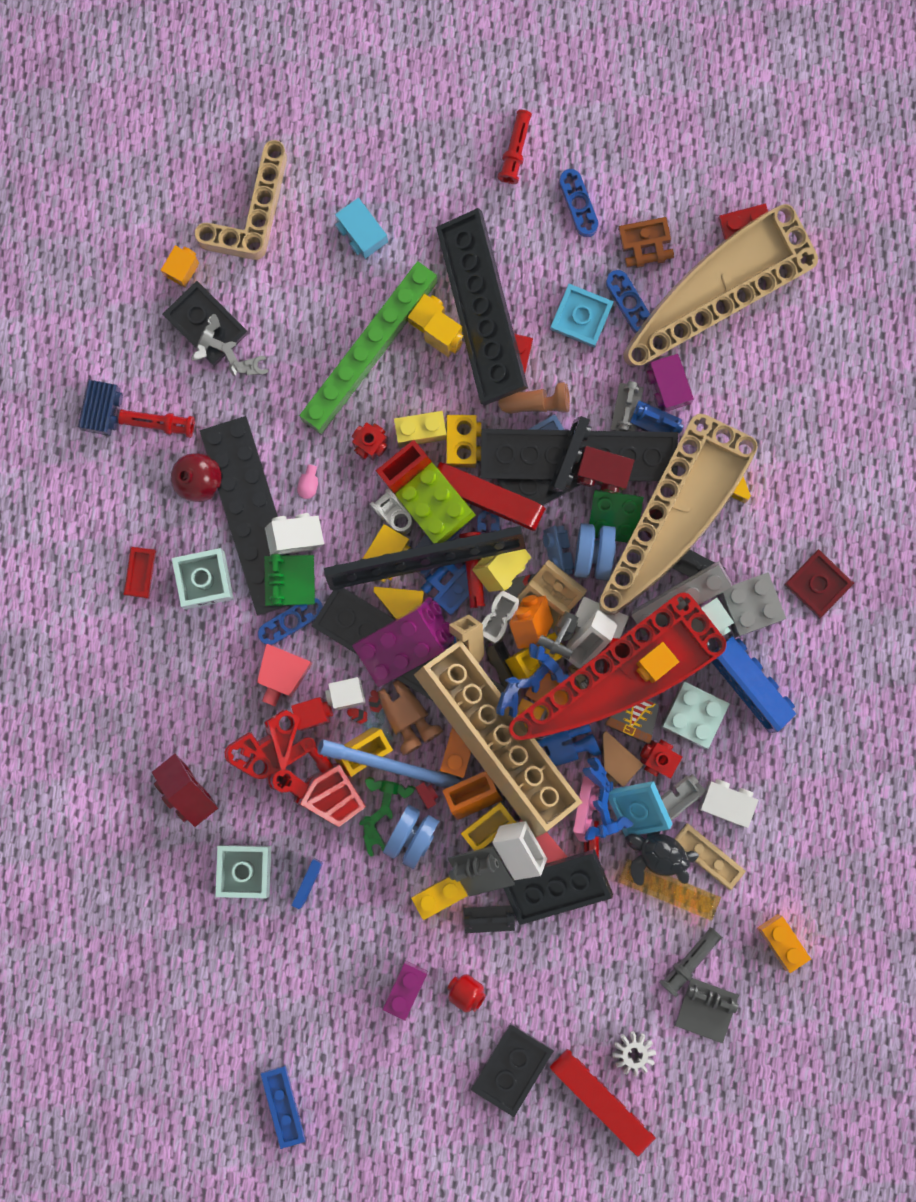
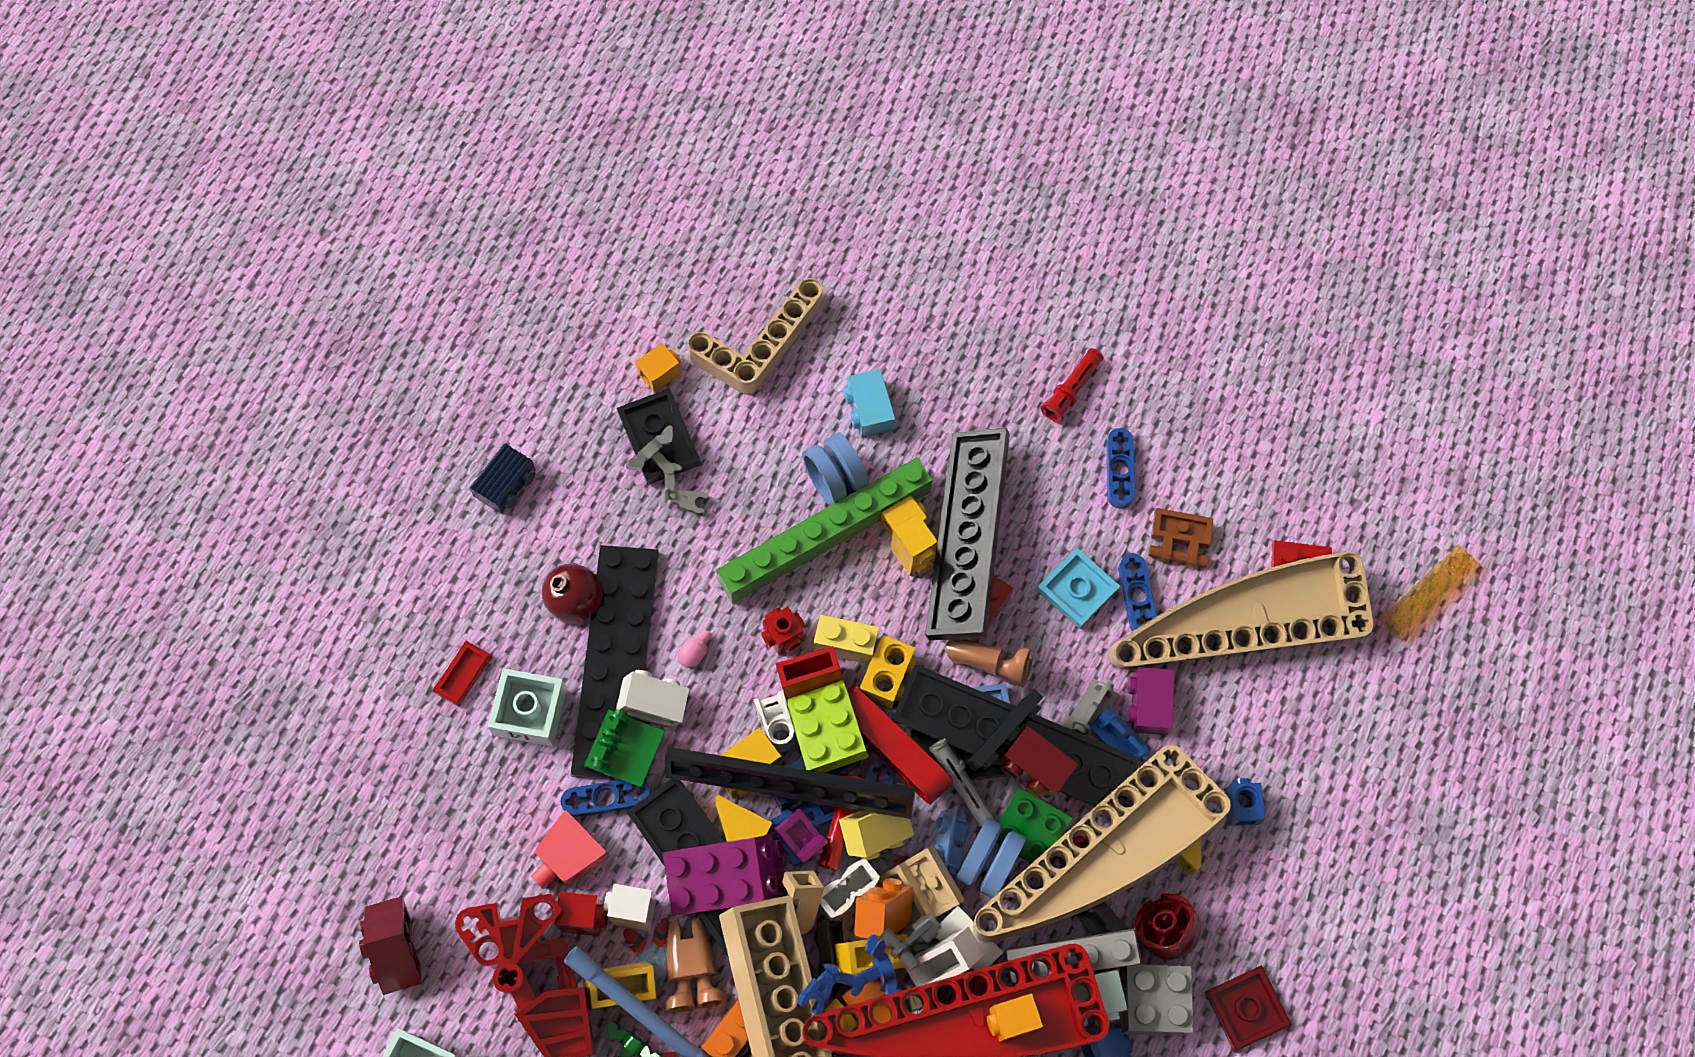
camera: 15 degrees right, 15 degrees down
(169, 425) = (571, 523): red pin -> none
(357, 296) = (835, 468): none -> medium blue wheel
(449, 592) = (801, 836): none -> magenta bracket
(529, 487) = (942, 752): none -> light grey pin
(741, 549) = (1168, 927): none -> dark red cylinder
(766, 444) = (1245, 816): none -> blue brick
(852, 209) = (1429, 592): none -> clear yellow plate

